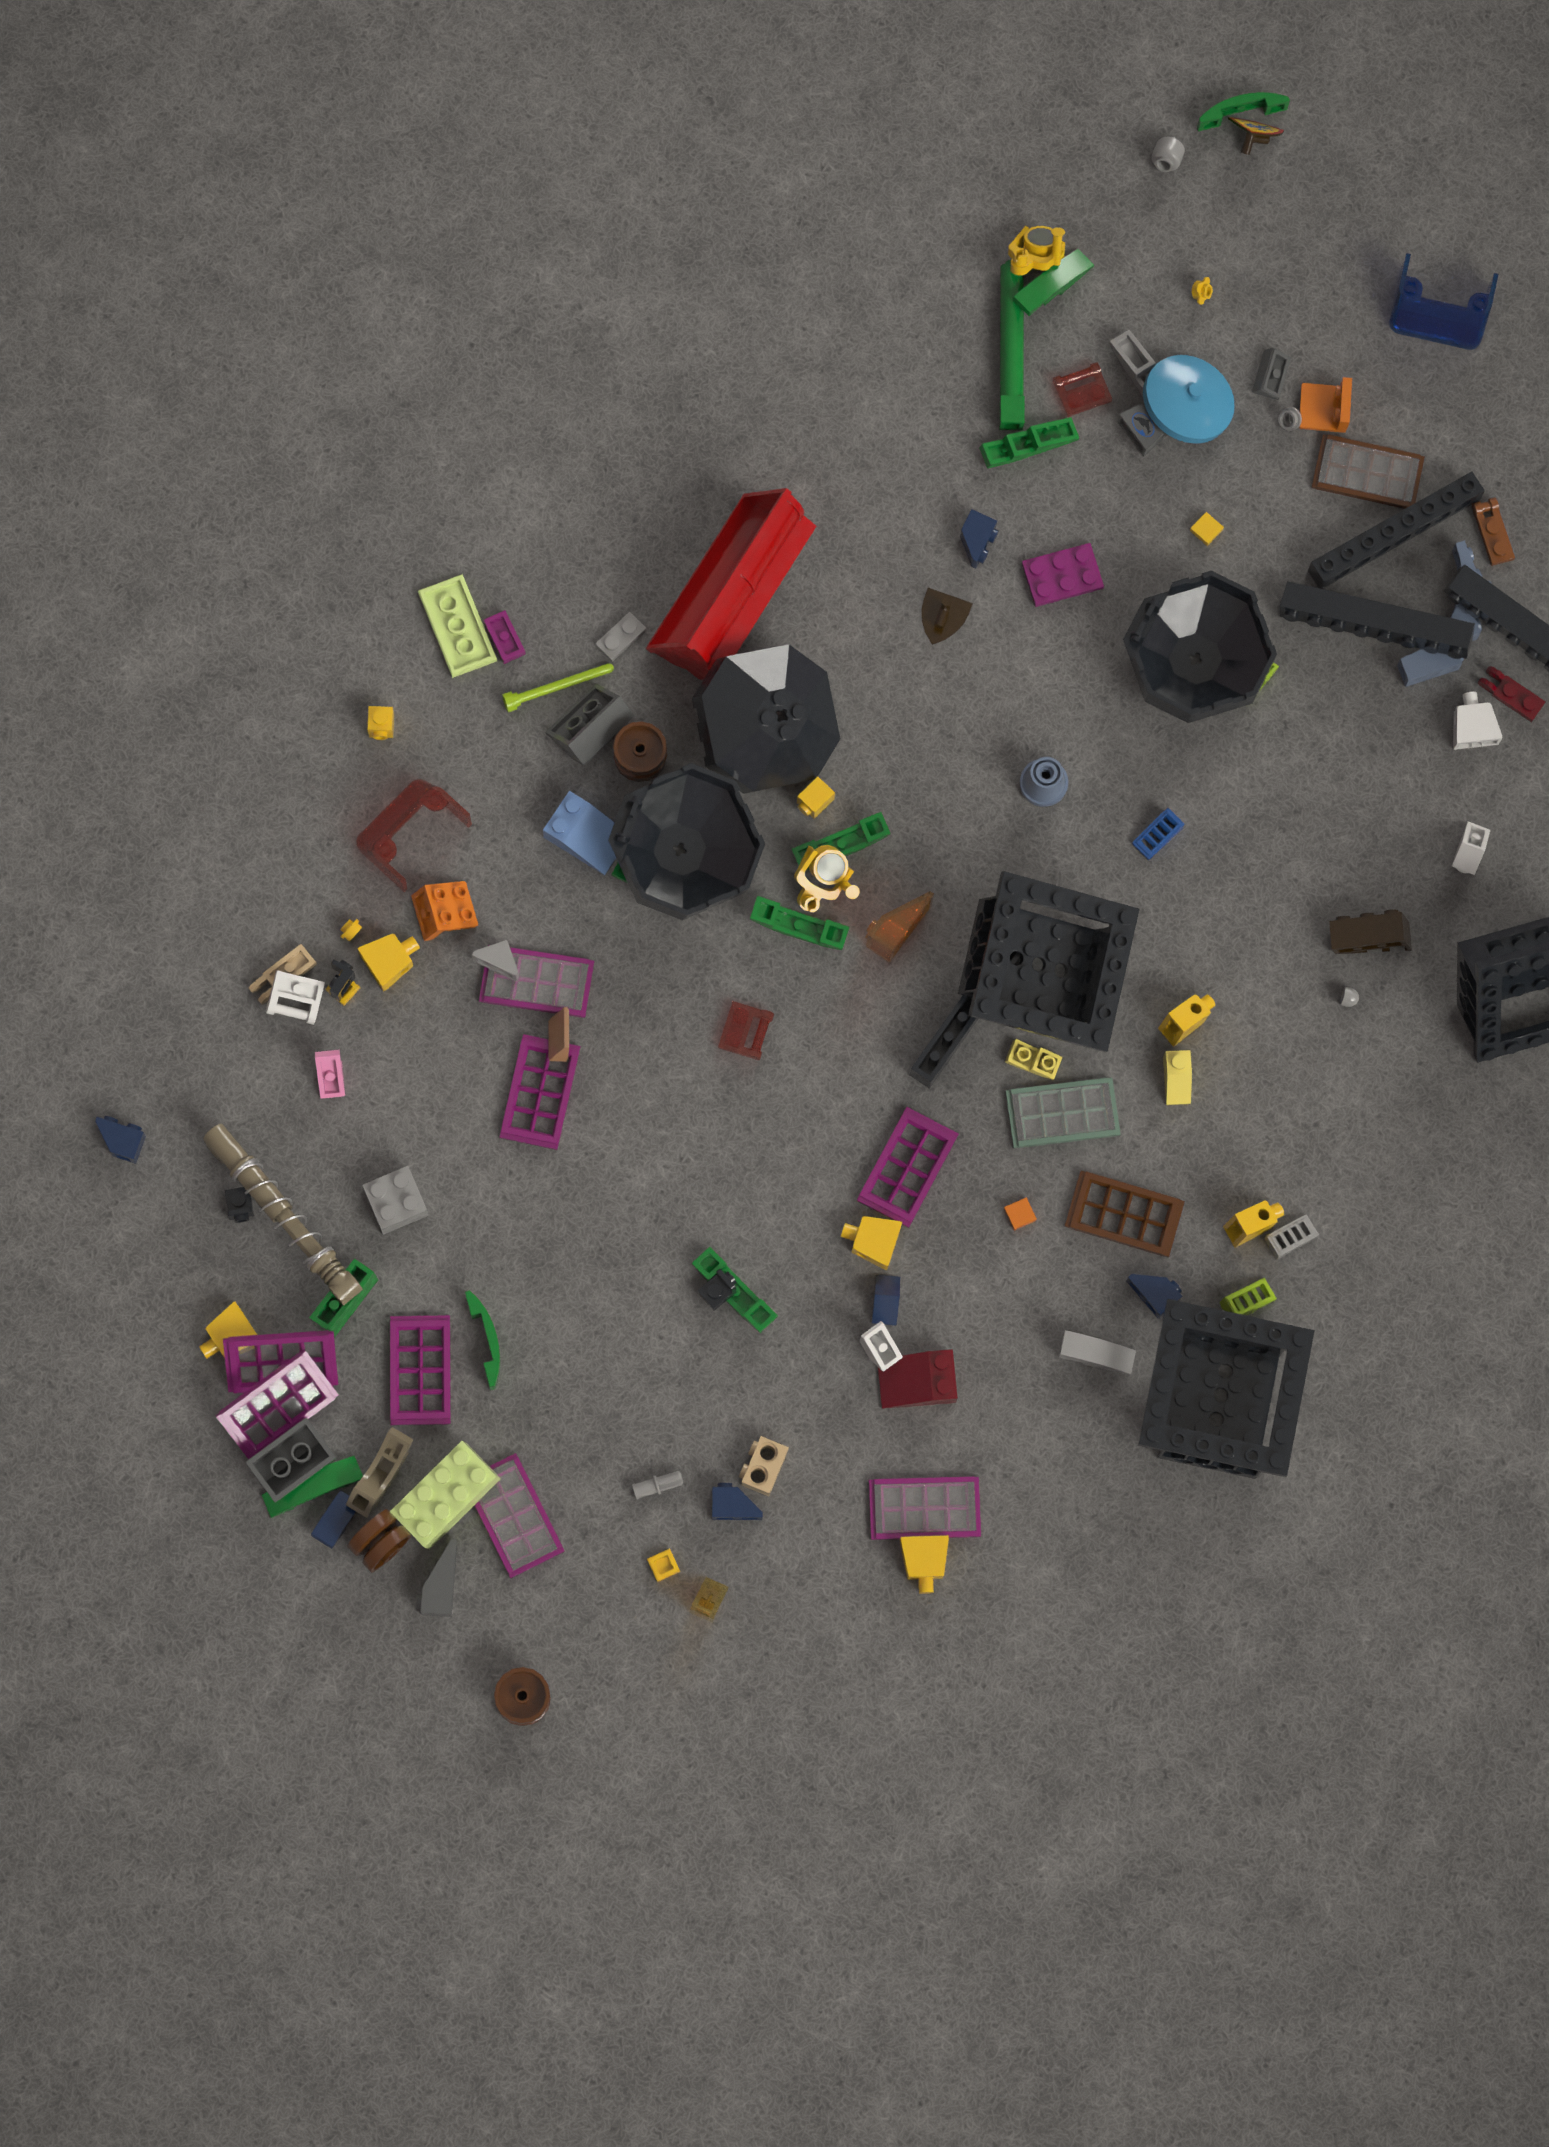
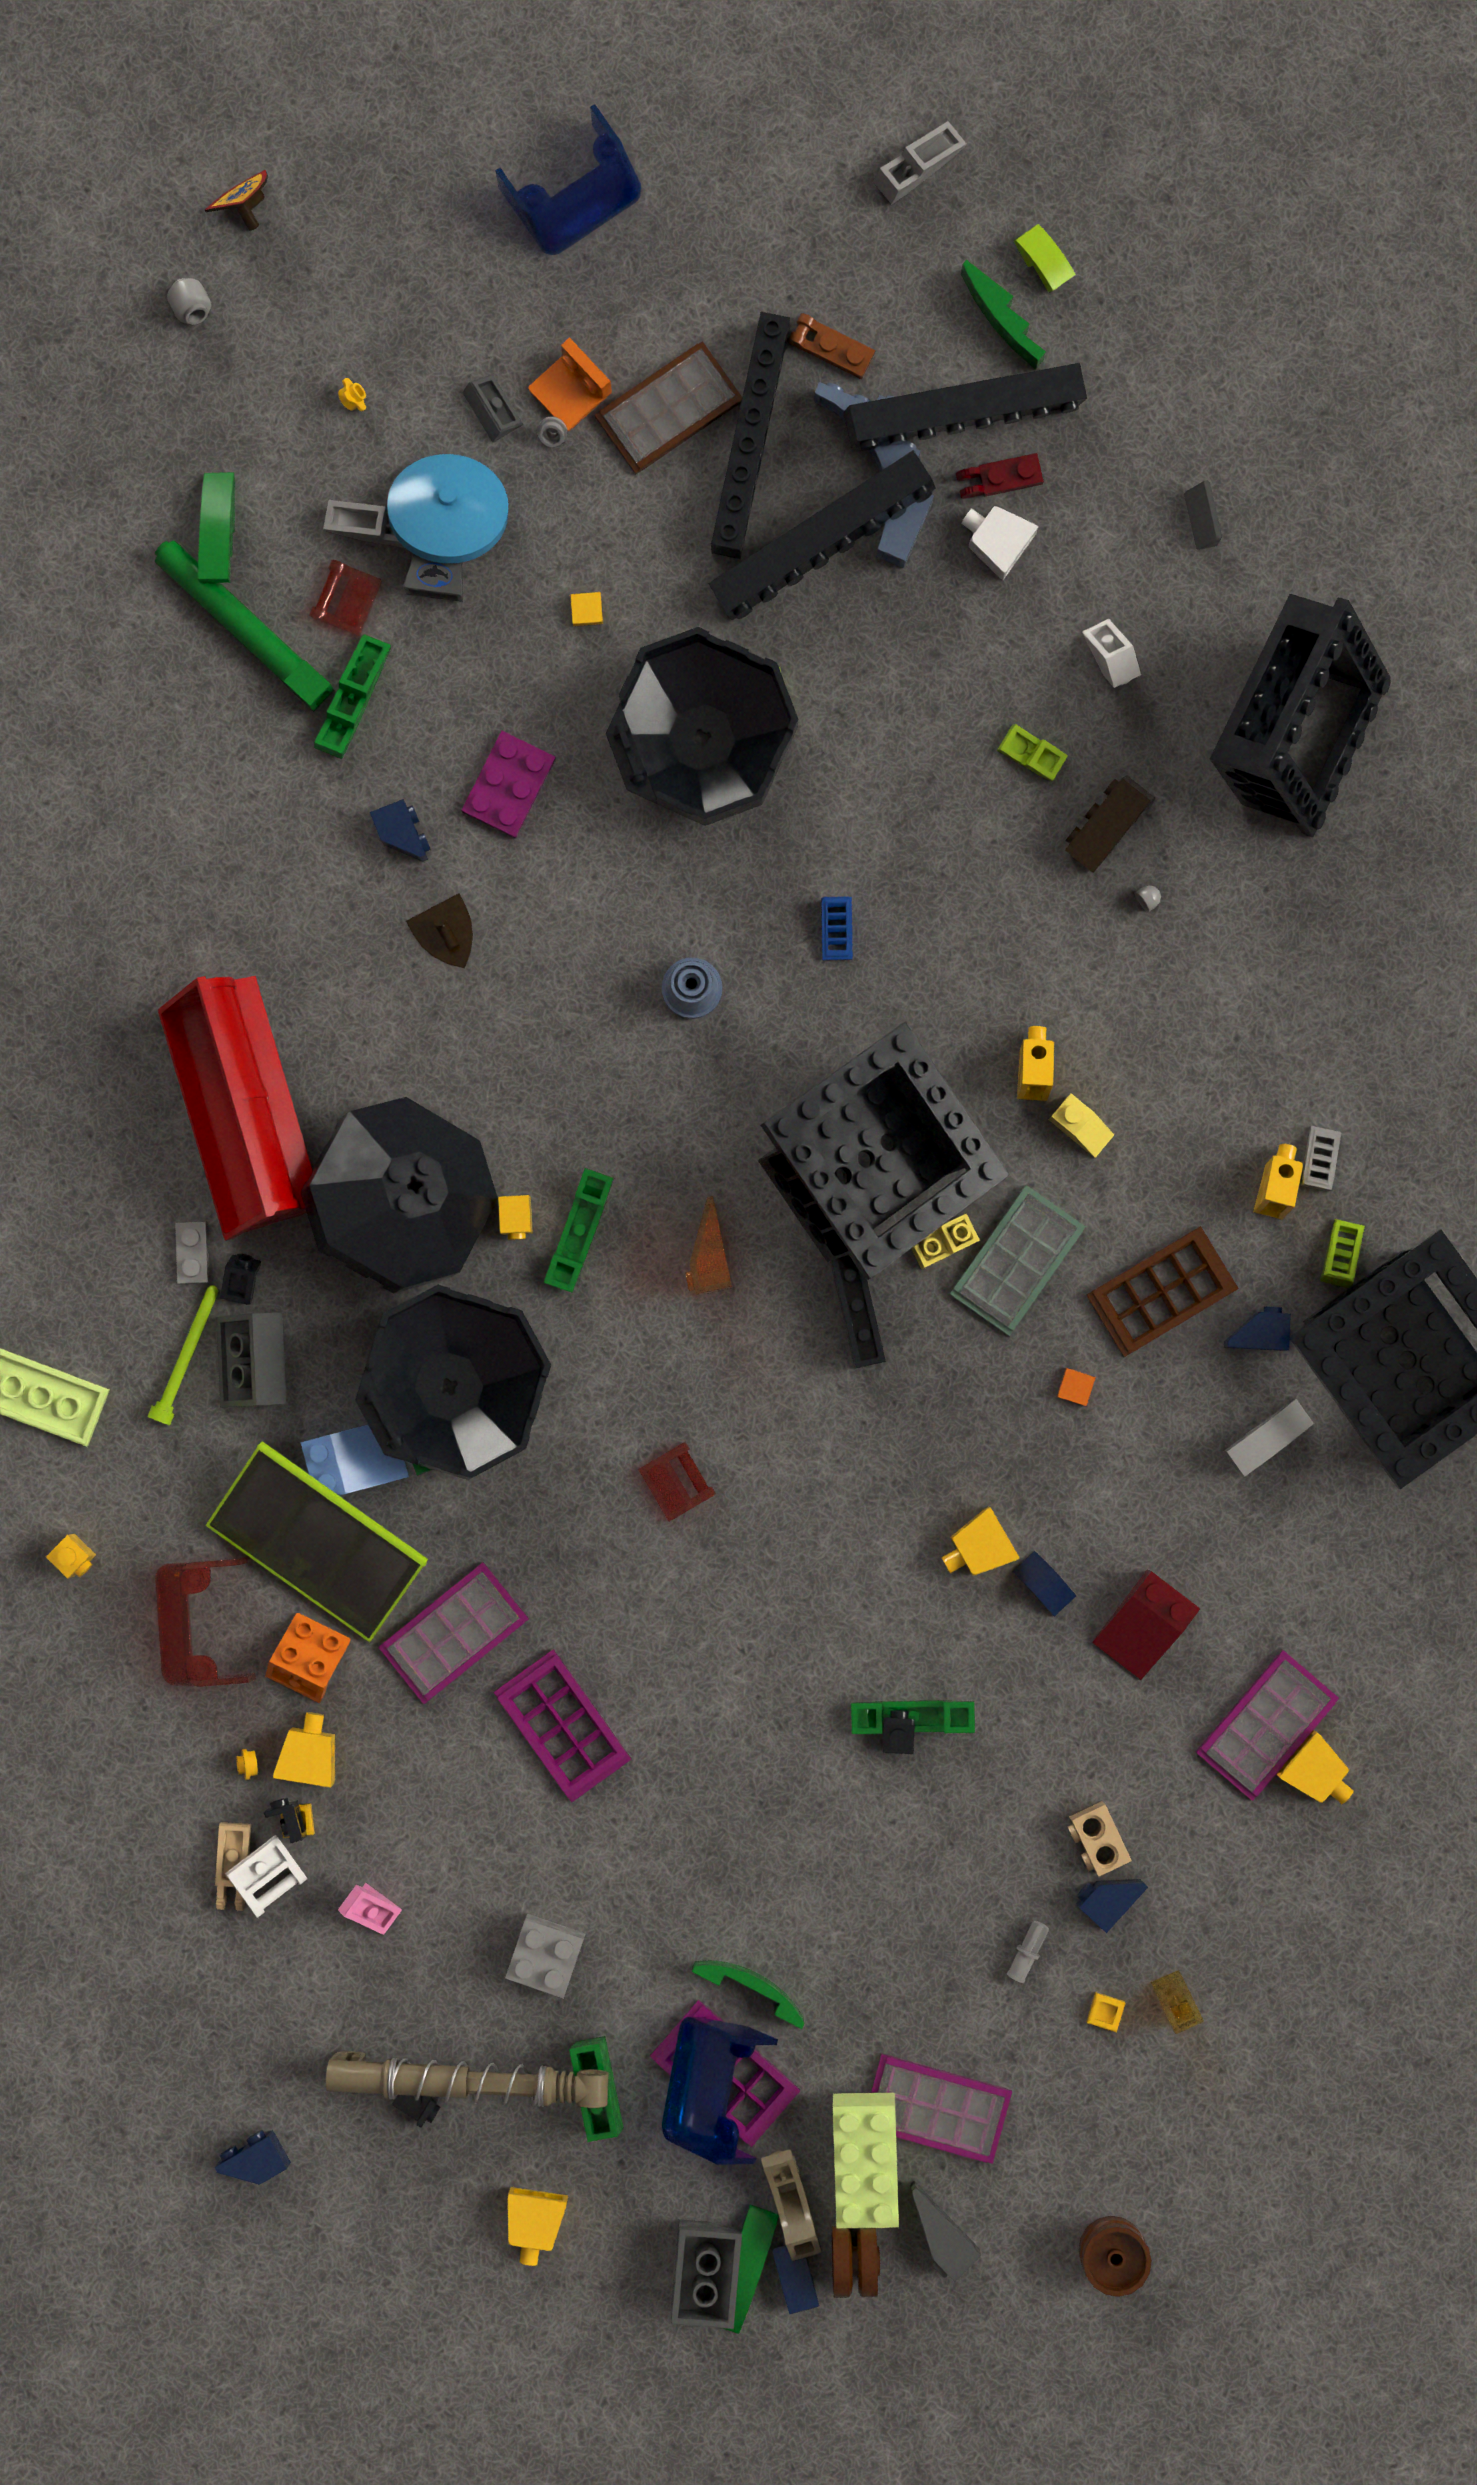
camera: 40 degrees left, 10 degrees up
(256, 1356) = (603, 2201): magenta piece -> none
(277, 1404) = (641, 2241): magenta piece -> none
(407, 1357) = (702, 2086): none -> clear blue windscreen
(497, 958) = (403, 1653): light grey slope -> none
(504, 637) = (93, 1363): magenta plate -> none
(519, 852) = (316, 1541): none -> clear smoke door
(559, 1036) = (527, 1663): medium nougat slope -> none
(630, 742) = (306, 1329): reddish brown wheel -> none
(631, 676) = (240, 1278): none -> black bracket
(798, 925) = (621, 1340): green slope -> none
(828, 867) = (594, 1267): yellow piece -> none
(880, 1346) = (1089, 1634): white slope -> none
(929, 1127) = (959, 1504): magenta piece -> none
(1040, 249) = (175, 509): yellow piece -> none
(1269, 102) = (224, 157): green slope -> none
(1368, 855) = (1032, 753): none -> lime slope

